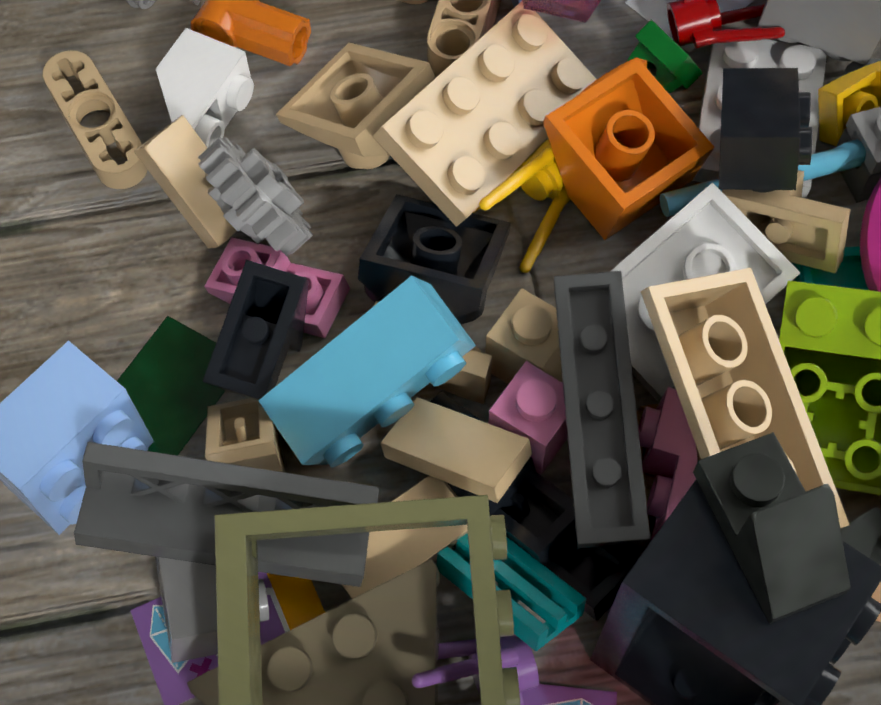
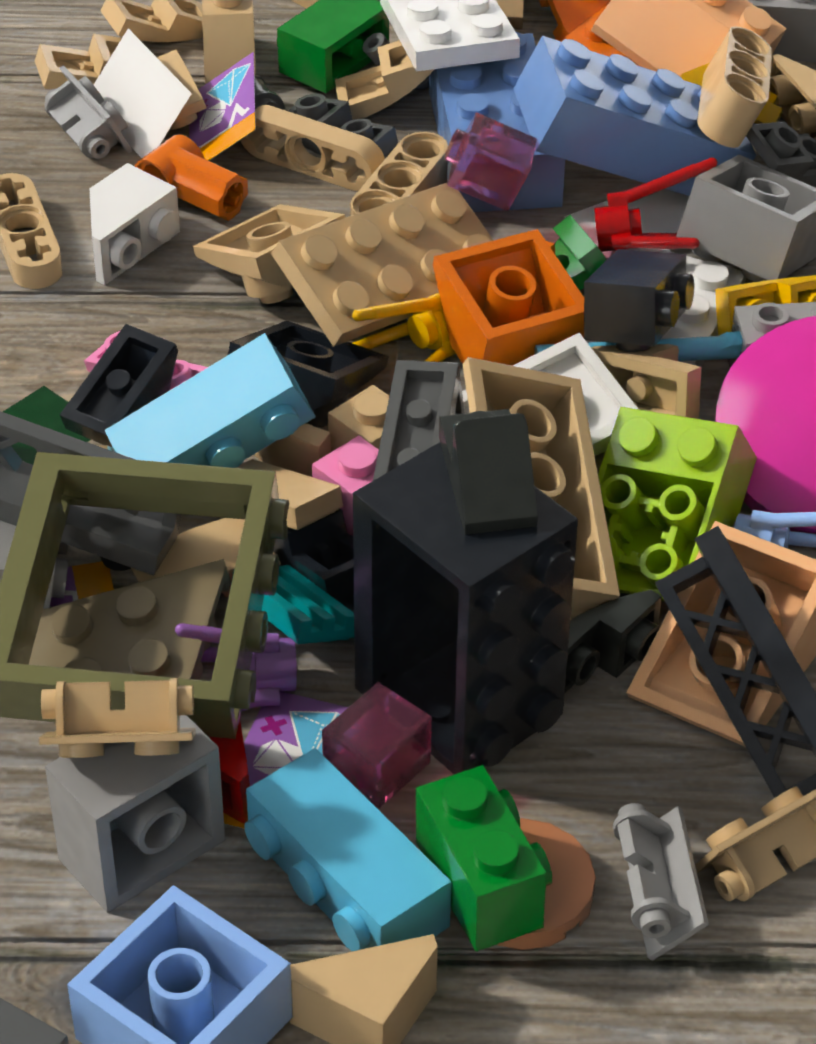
camera: 10 degrees right, 20 degrees down
(173, 163) = (98, 277): tan slope -> none
(255, 196) = (150, 288): light grey gear -> none

